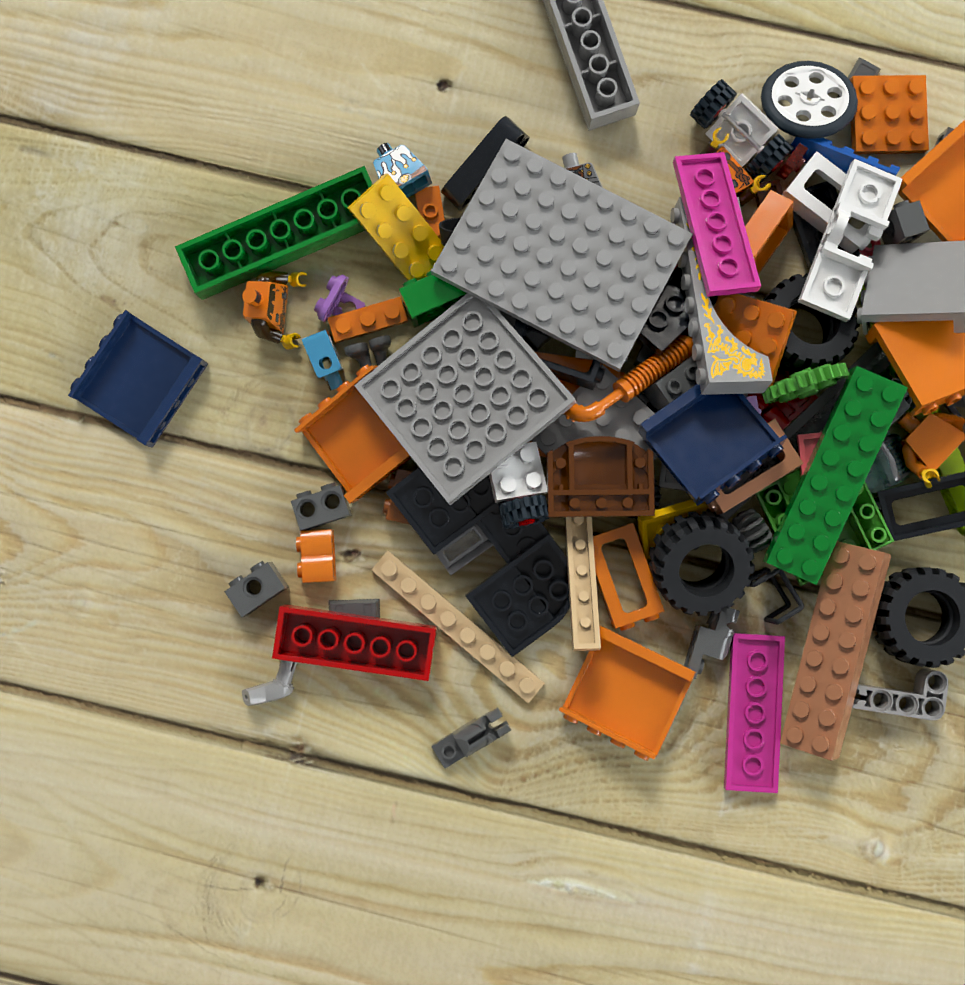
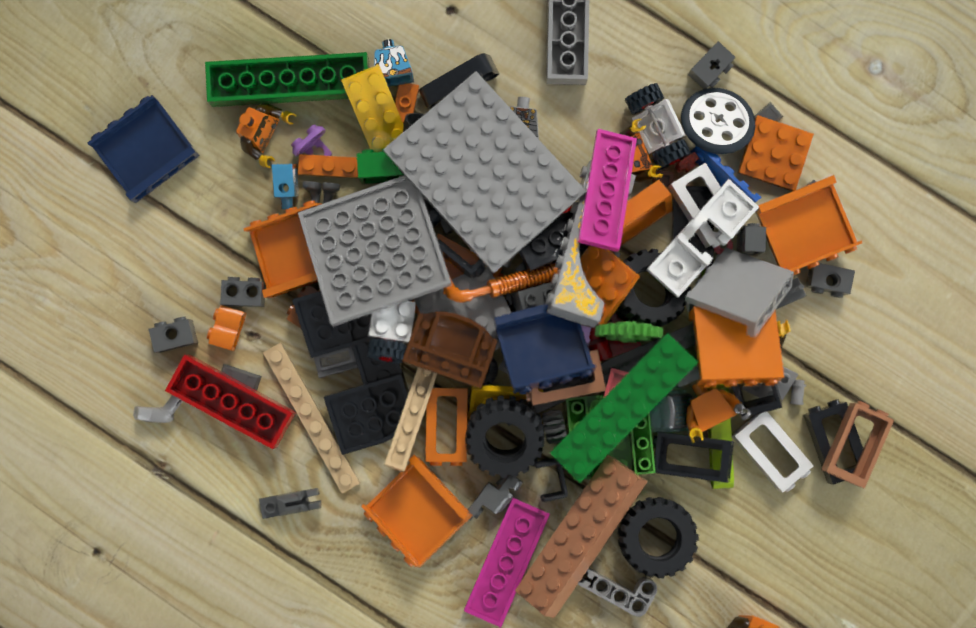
camera: 20 degrees right, 0 degrees up
(780, 25) = (717, 55): none -> dark grey brick

